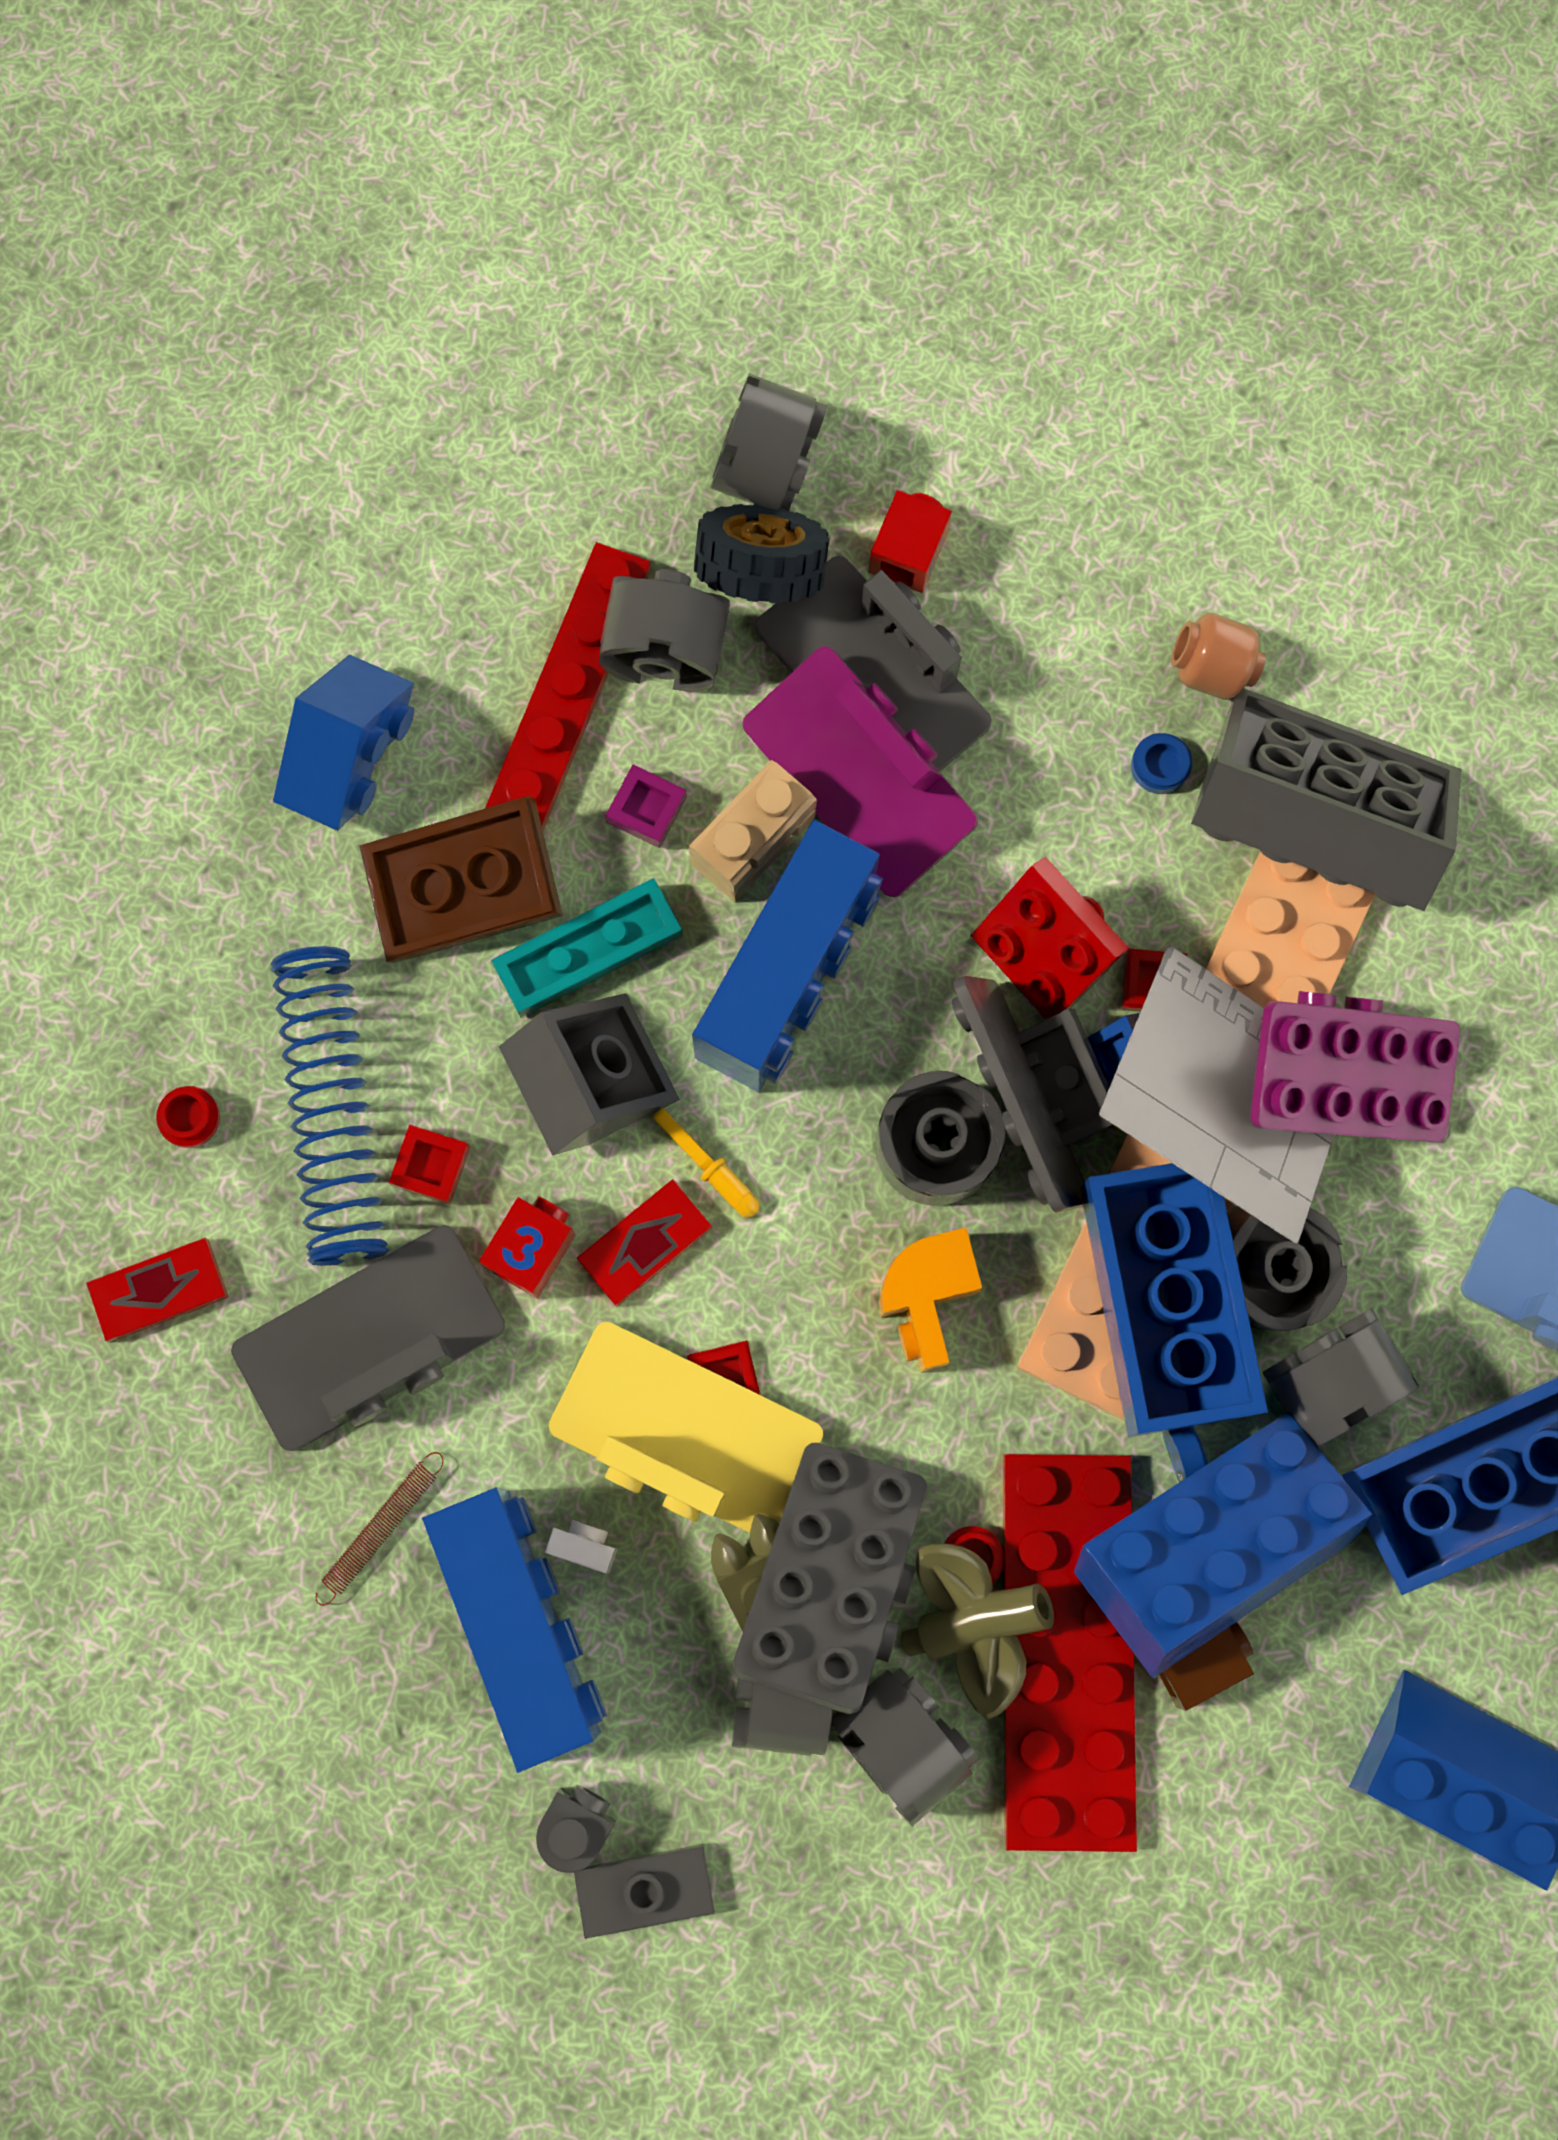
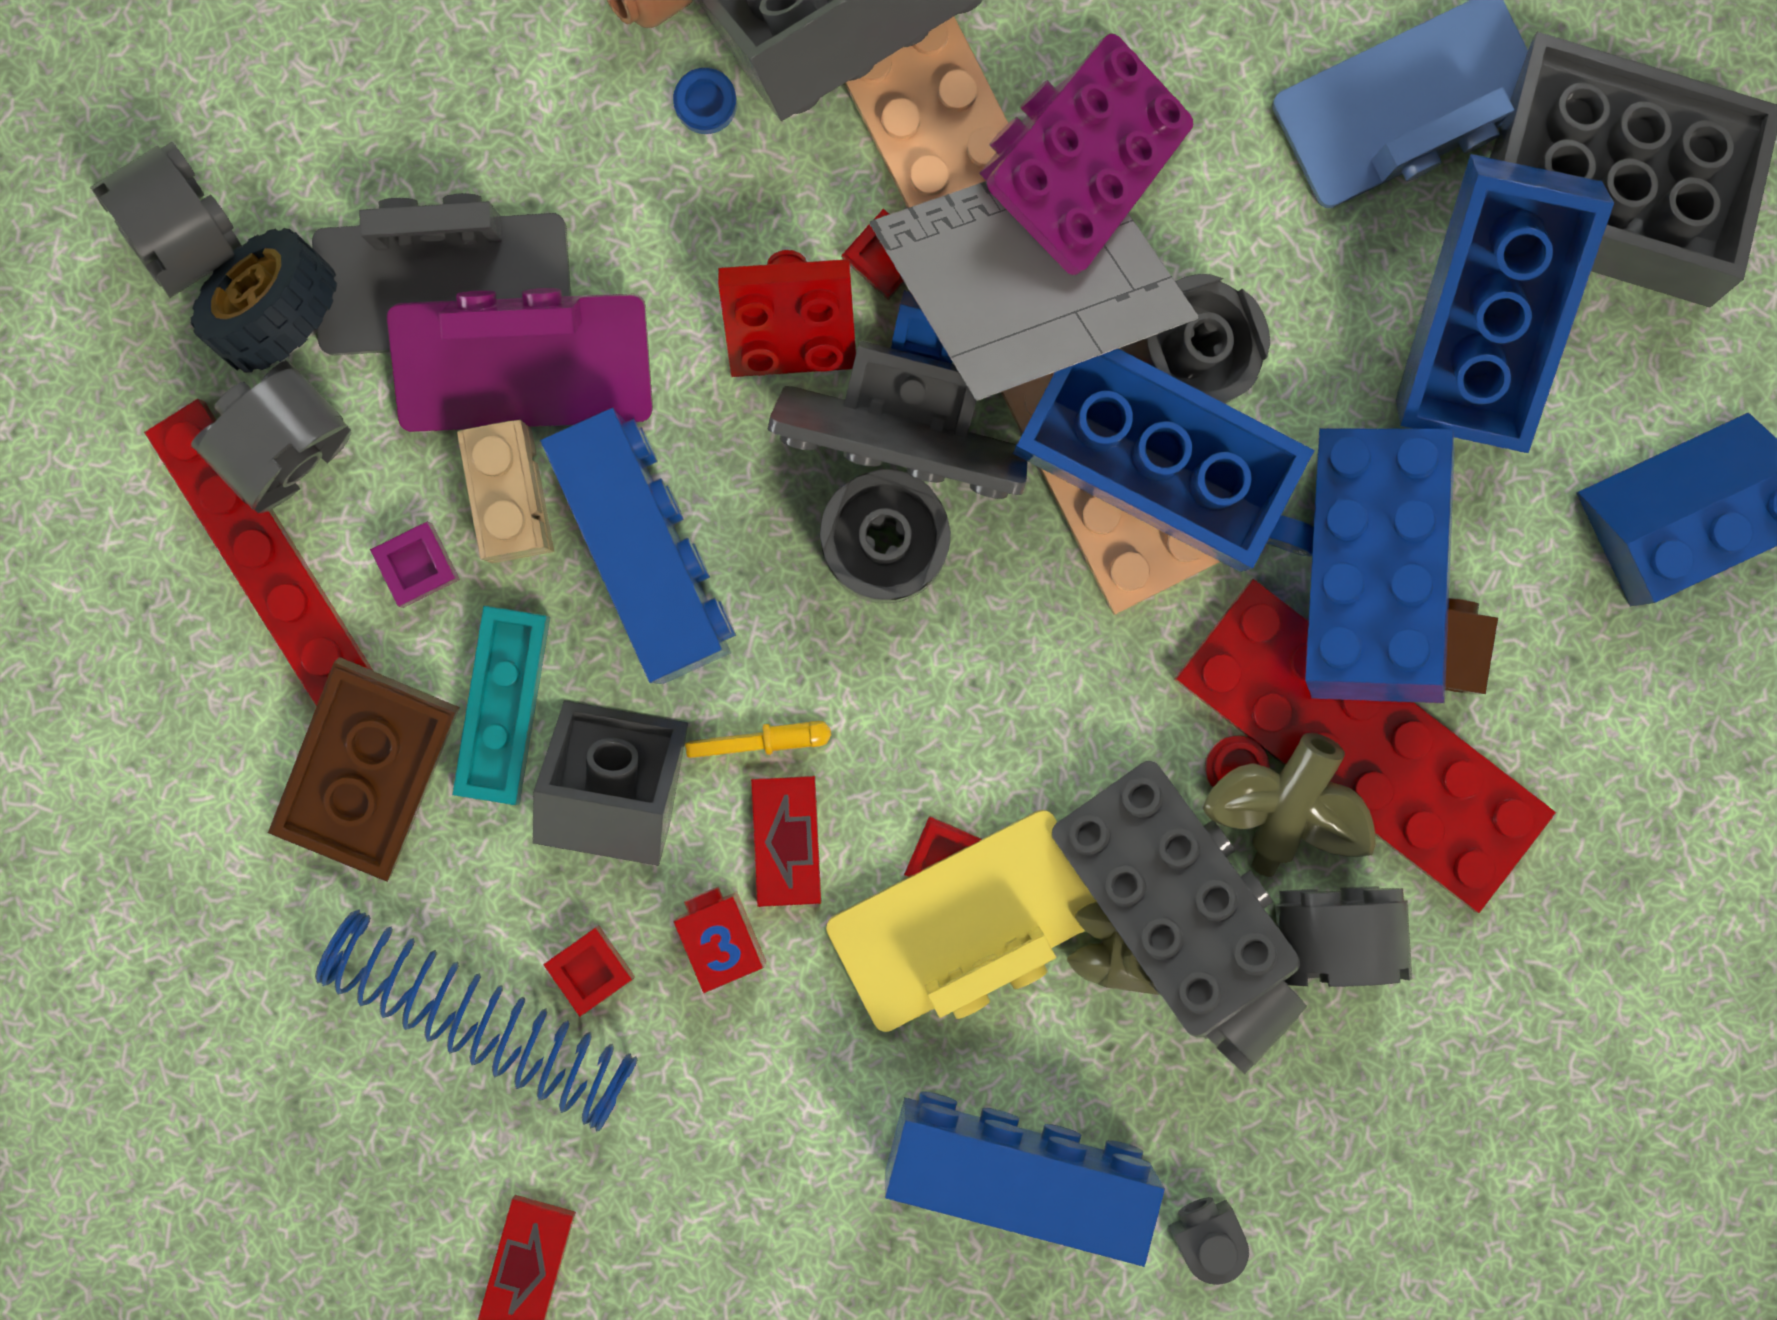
camera: 50 degrees left, 10 degrees up
(188, 1117) = (397, 1140): red plate -> none
(337, 738) = (159, 784): blue brick -> none
(368, 1339) = (697, 1123): dark grey bracket -> none
(392, 1496) = (869, 1225): red piece -> none
(583, 1546) = (996, 1074): white plate -> none
(644, 1891) = (1297, 1218): dark grey plate -> none
(910, 539) = (347, 160): red brick -> none
(919, 1278) = (987, 637): light orange brick -> none
(1342, 1378) = (1326, 363): dark grey brick -> none

